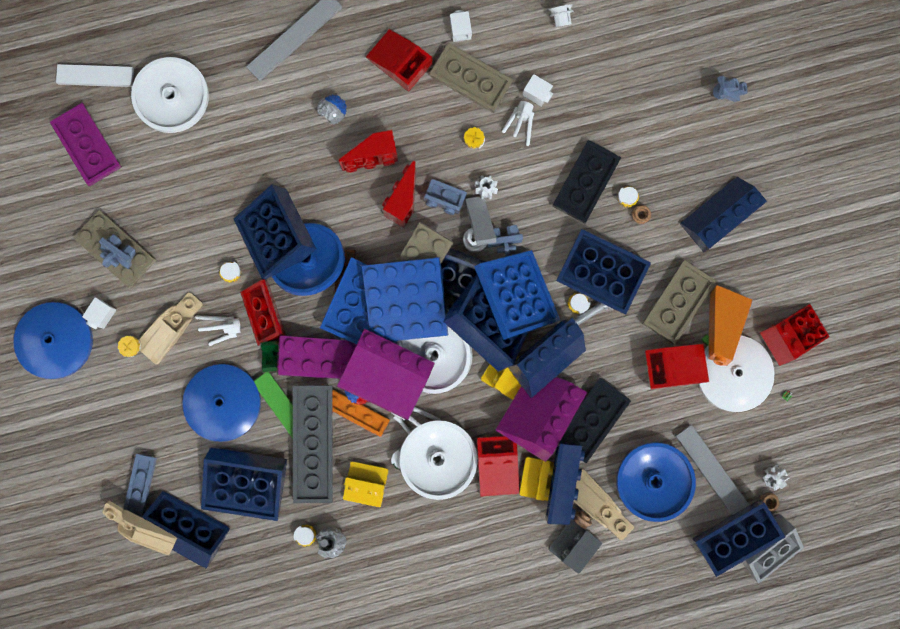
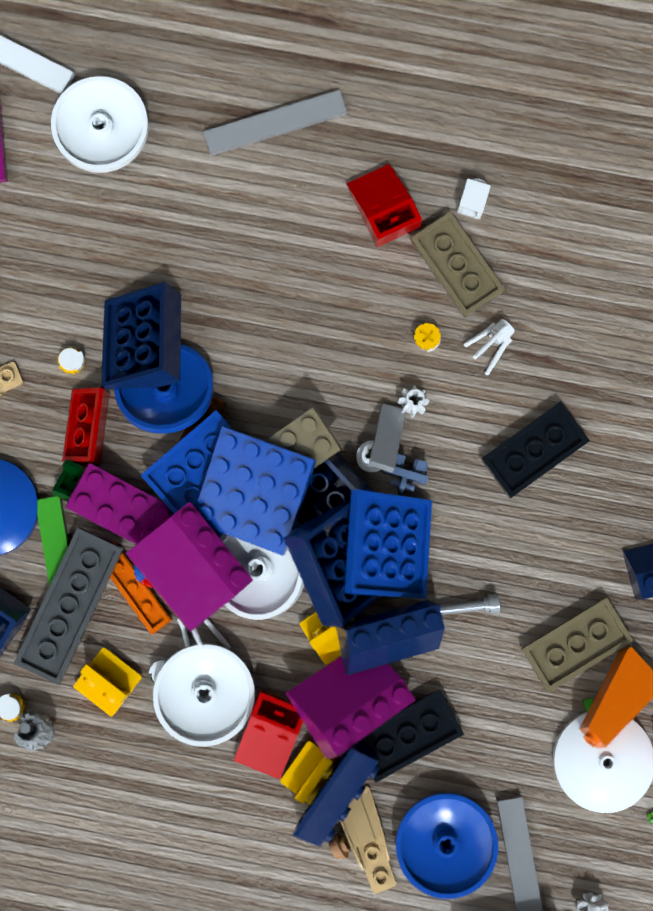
camera: 30 degrees right, 0 degrees up
(231, 327) = (41, 424): white plant -> none
(332, 108) = (278, 226): light grey piece -> none
(373, 151) = (299, 297): red slope -> none
(401, 203) = (306, 372): red slope -> none
(445, 197) = (359, 389): sand blue bracket -> none
(538, 90) = (529, 316): white brick -> none
(561, 15) = (599, 240): white piece -> none
(575, 546) = (315, 874): dark grey bracket -> none
(578, 303) = (457, 588): white piece -> none
(603, 271) = (503, 566): dark blue slope -> none
(628, 196) = (576, 490): white piece -> none
(644, 209) = (589, 519): medium nougat plate -> none
(677, 366) = (537, 720): red slope -> none

